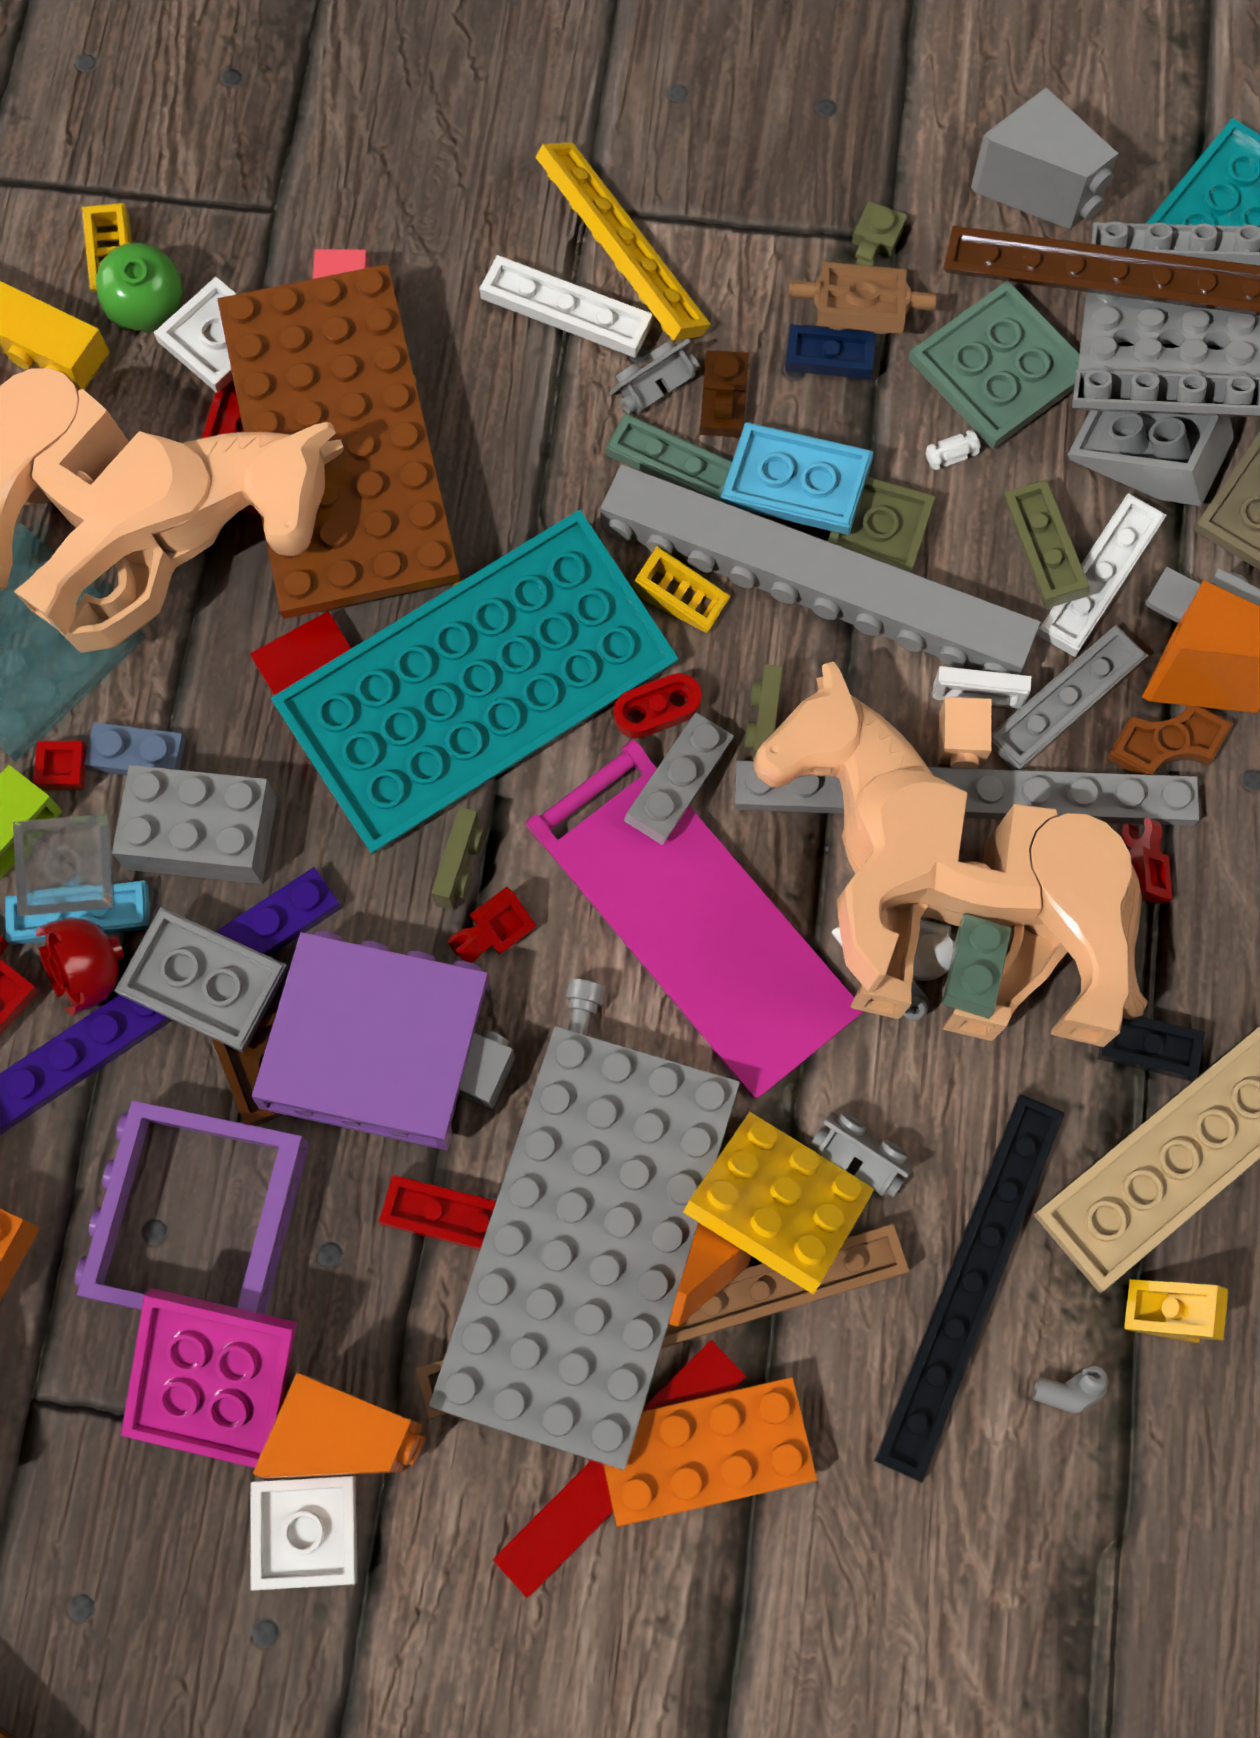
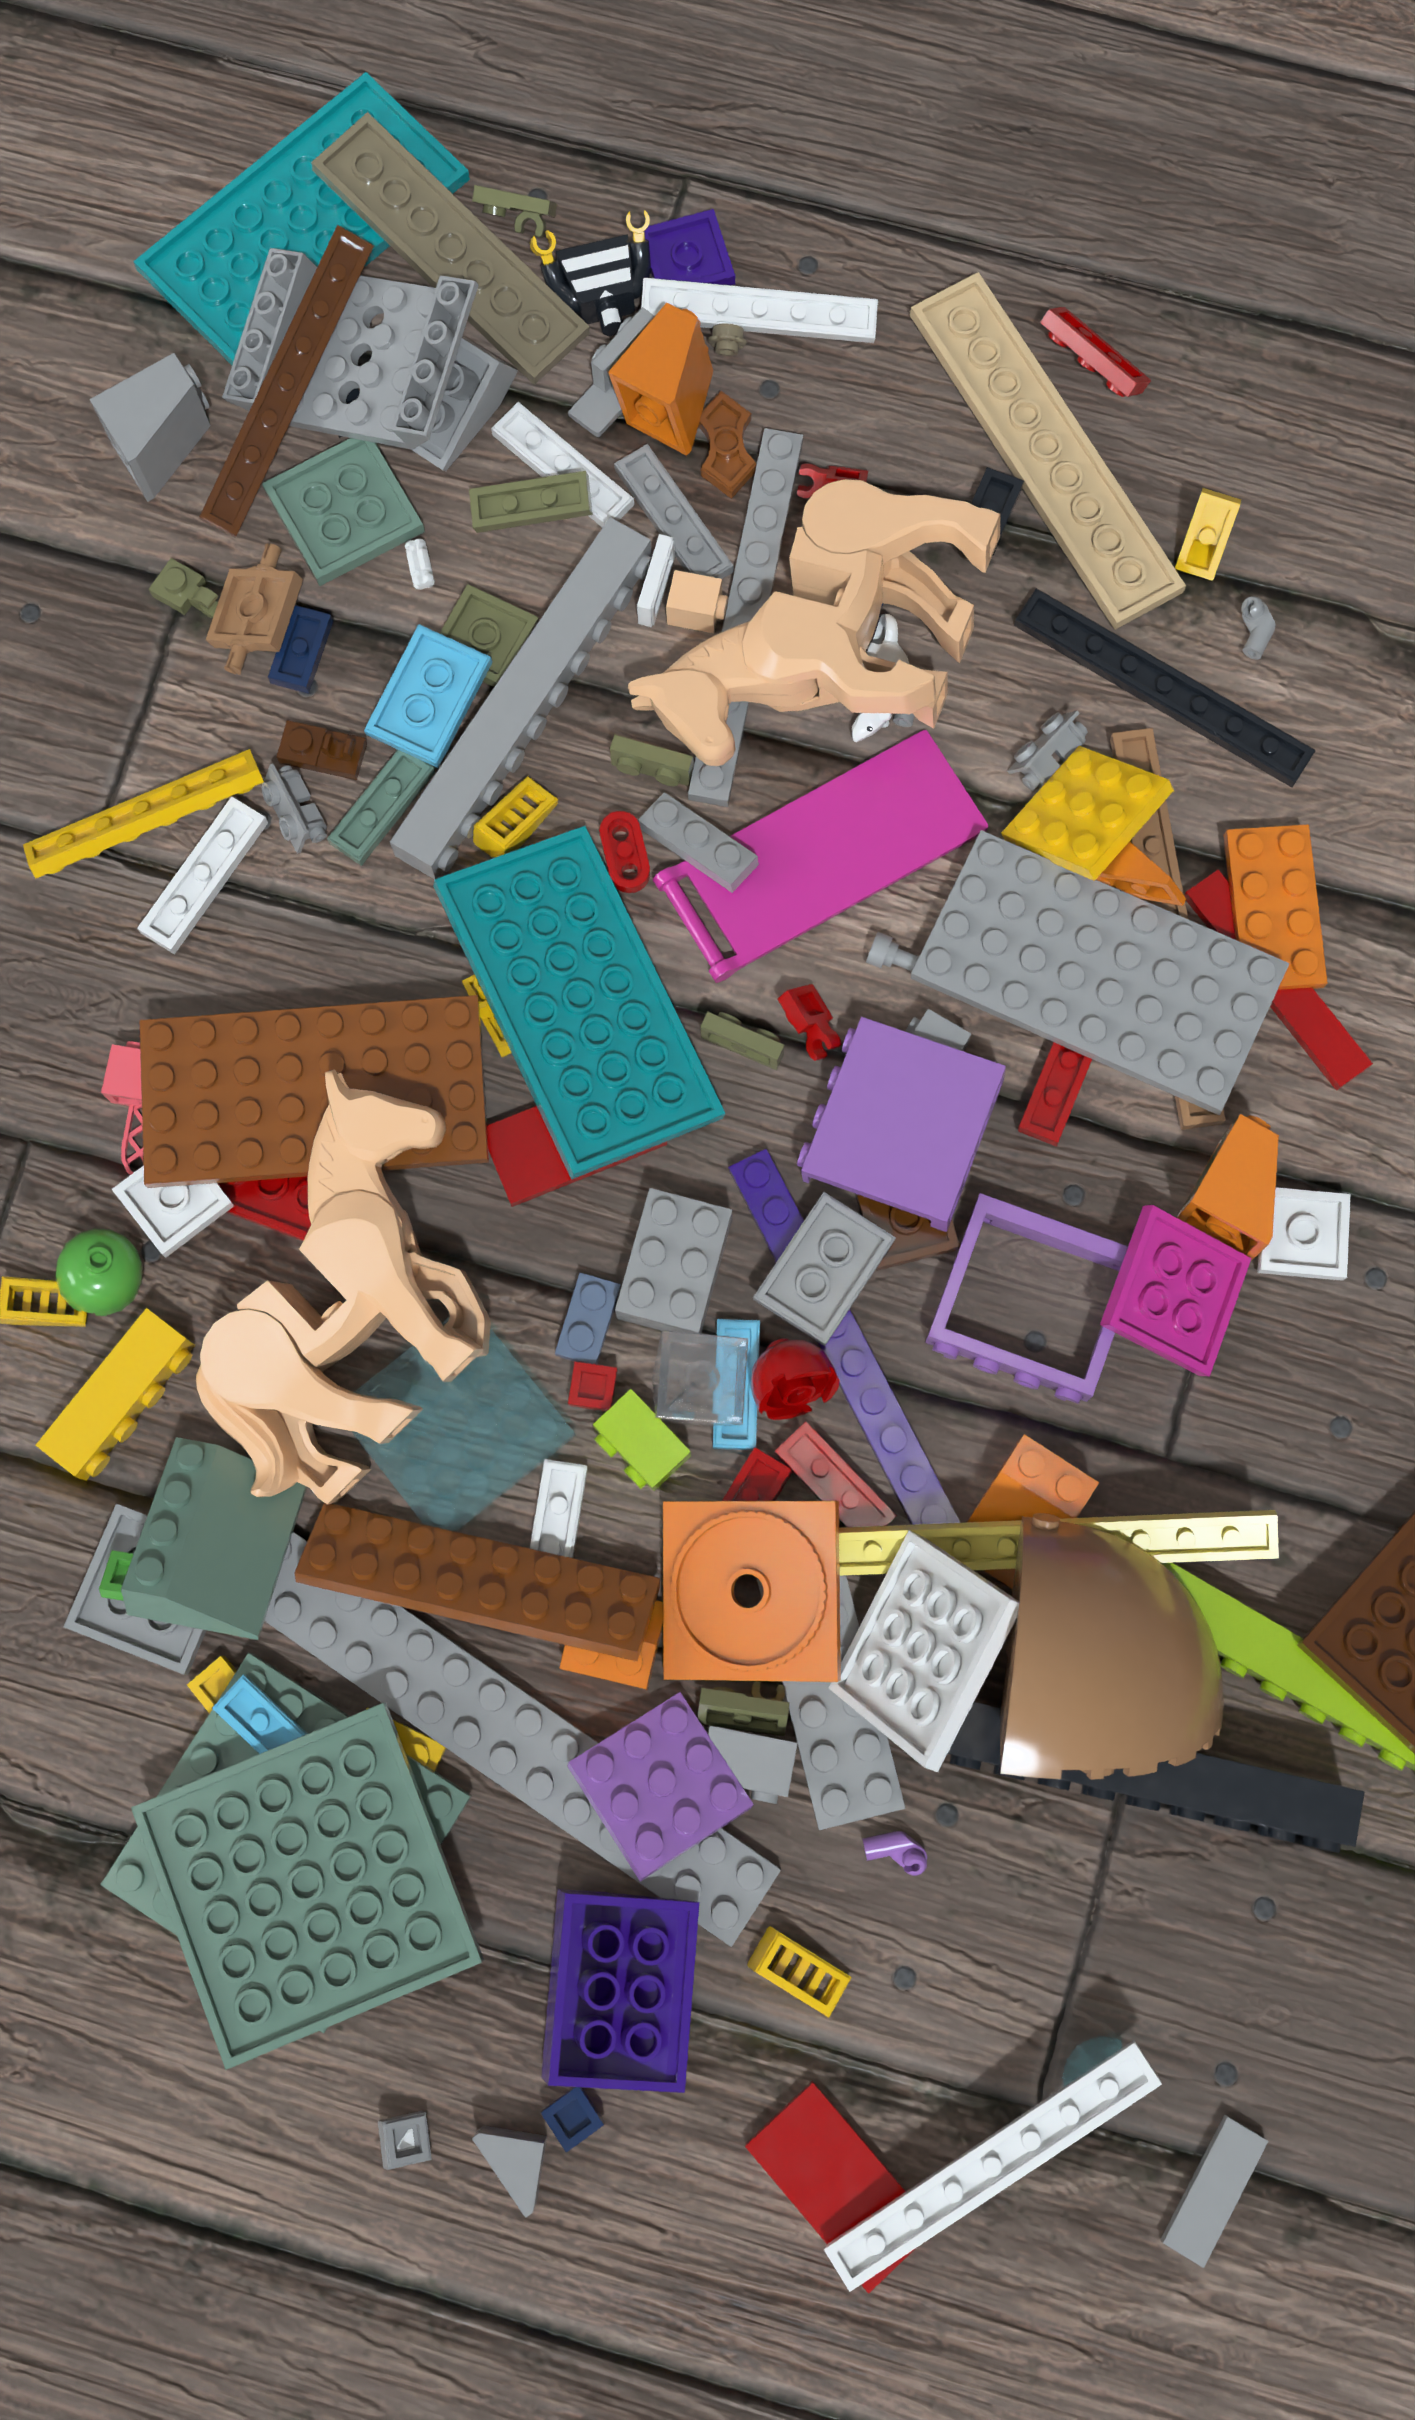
camera: 80 degrees left, 5 degrees up
(976, 966) = (920, 617): sand green plate -> none

